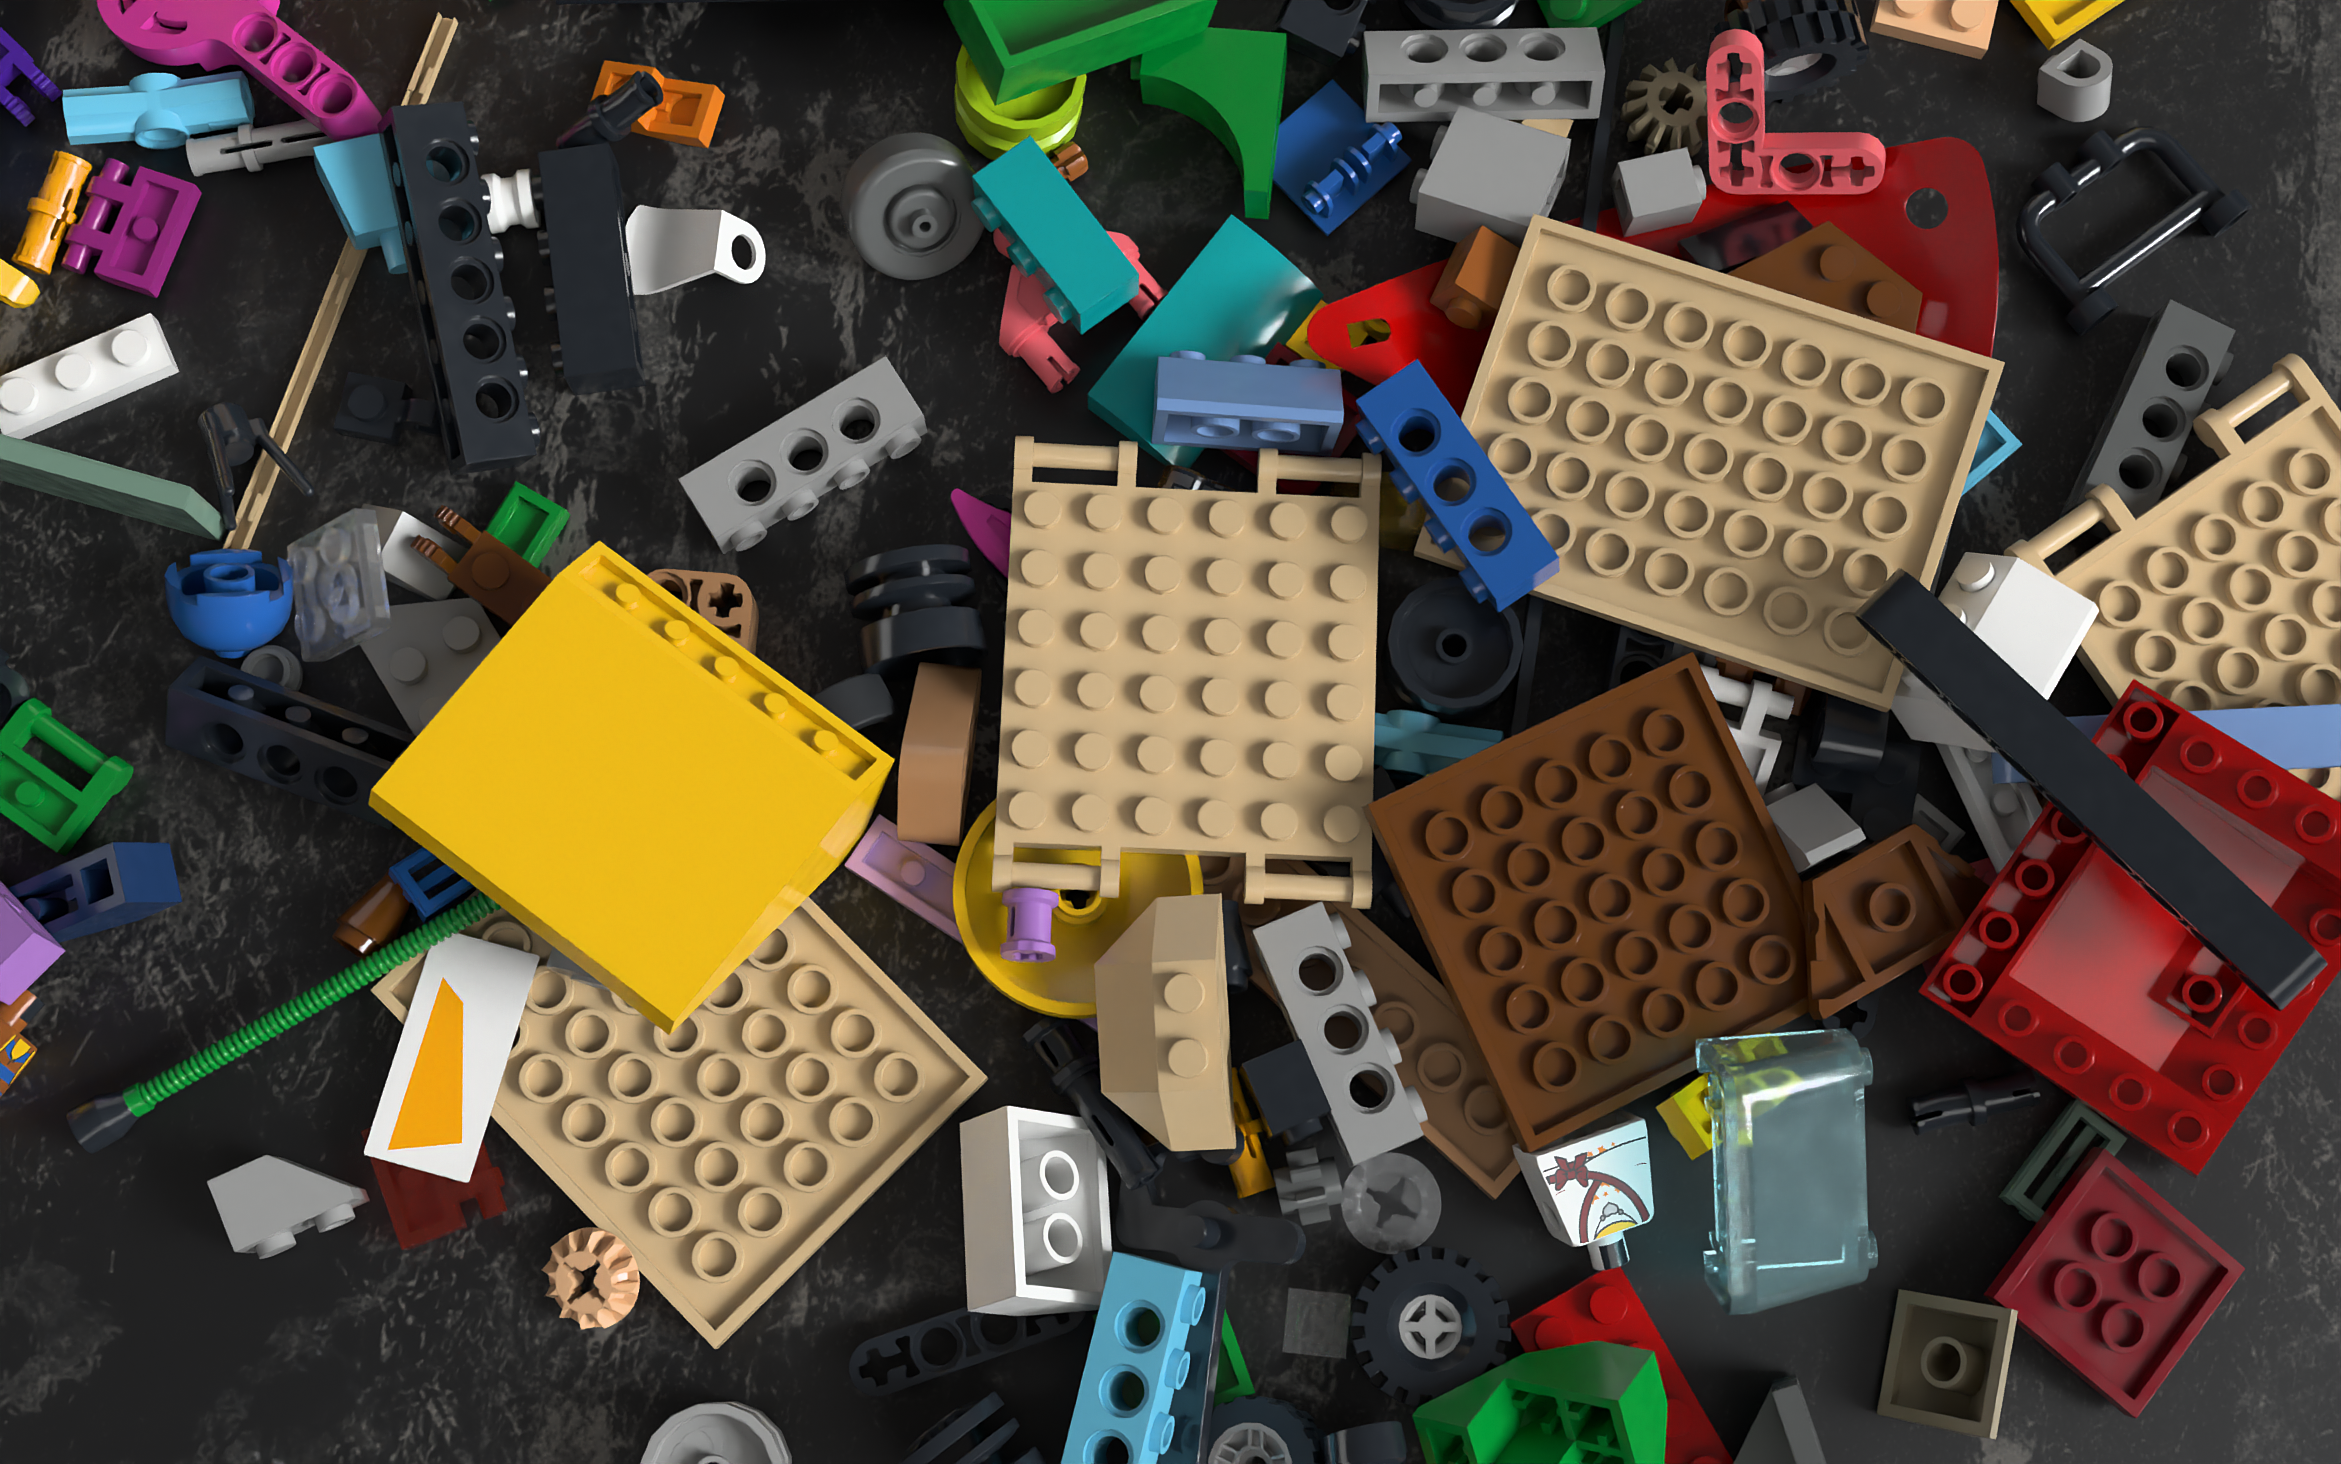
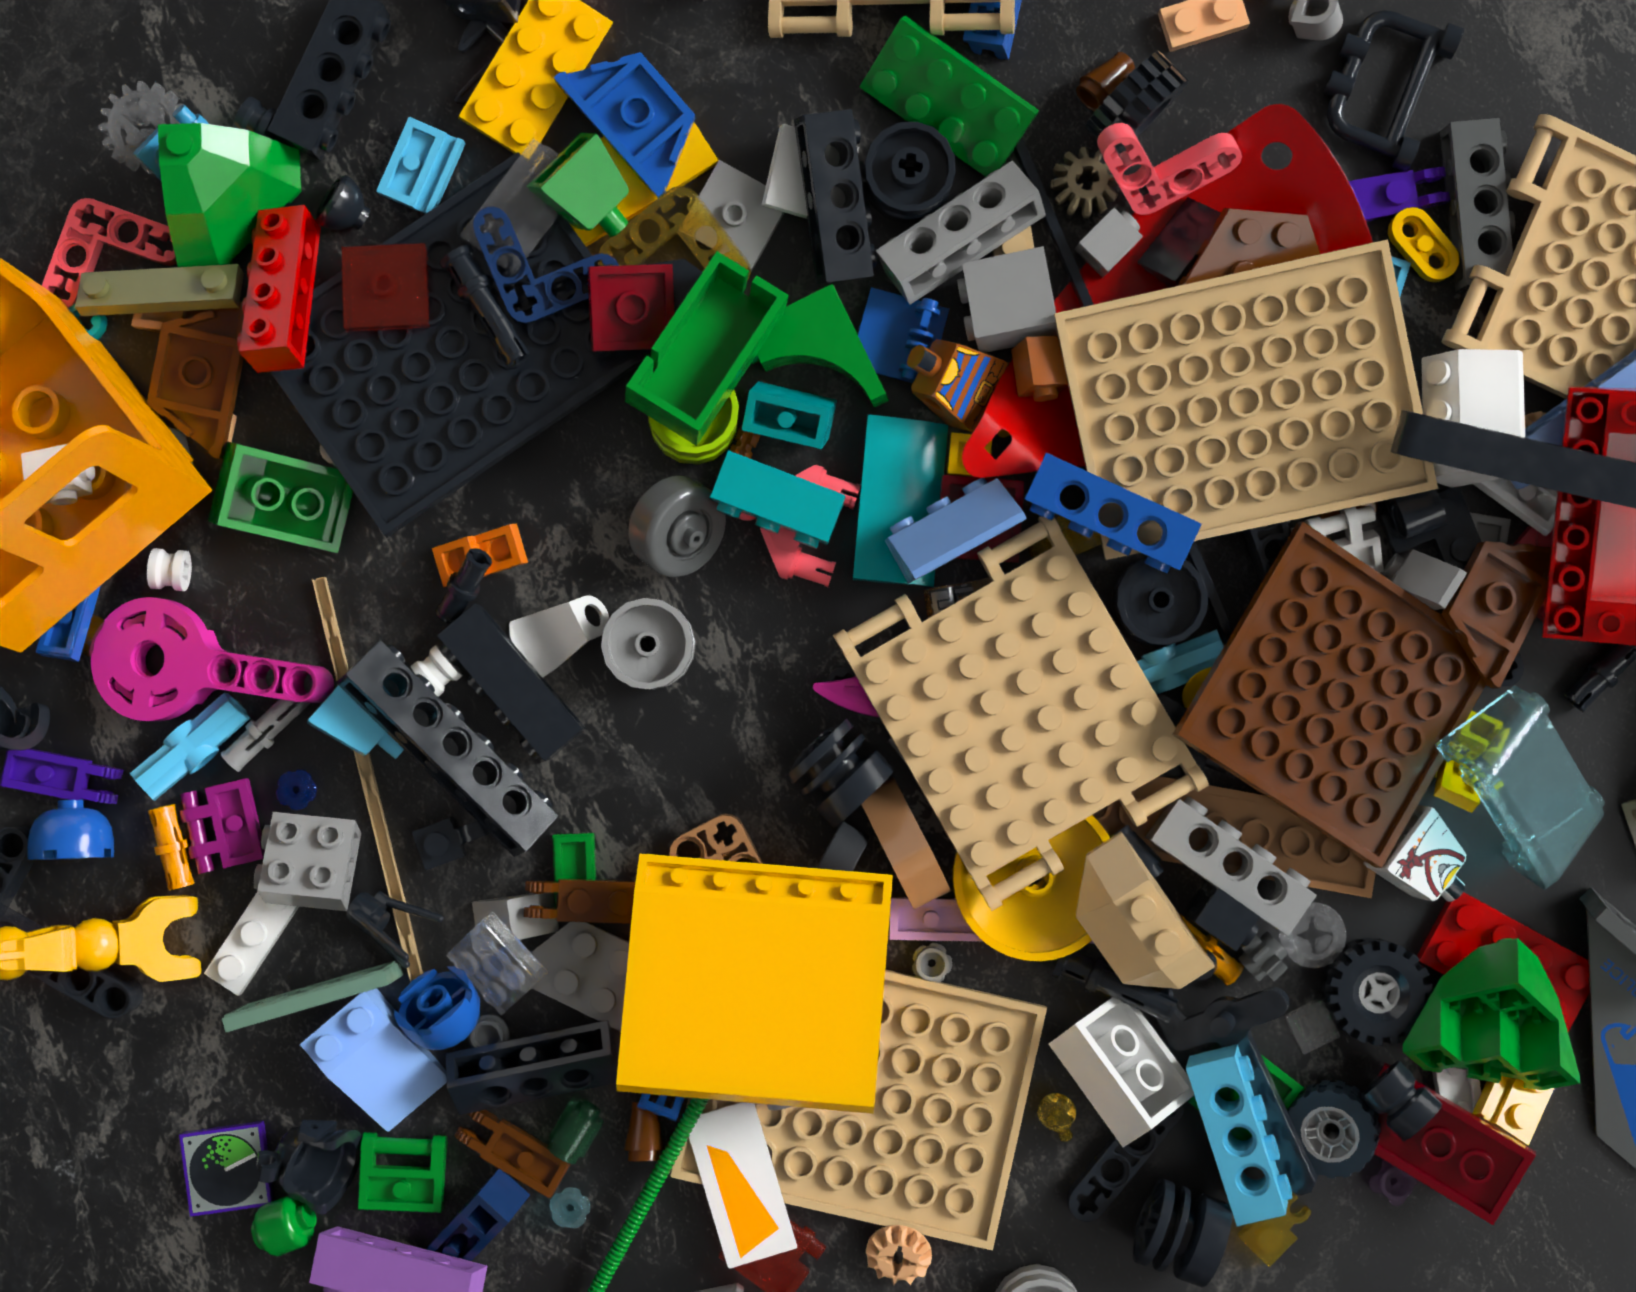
camera: 30 degrees left, 10 degrees up
(109, 612) = (375, 1060): none -> light blue slope
(199, 323) = (308, 861): none -> light grey brick
(203, 842) = (515, 1153): none -> reddish brown hinge
(204, 950) = (566, 1218): none -> clear light blue plate
(255, 252) = (306, 785): none -> clear blue plate
(293, 858) = (575, 1131): none -> clear green brick
(791, 287) = (641, 620): none -> light grey wheel
(818, 425) = (673, 767): light grey brick -> none
(891, 920) = (924, 954): none -> light grey plate
(914, 1227) = (1057, 1114): none -> clear yellow piece
(1029, 925) = (1024, 917): medium lavender bush -> none
(1135, 157) = (789, 415): none -> teal brick
(1363, 232) = (955, 381): none -> torso
(2052, 353) = (1390, 193): none -> dark purple hinge
(2055, 435) = (1426, 242): none -> yellow plate

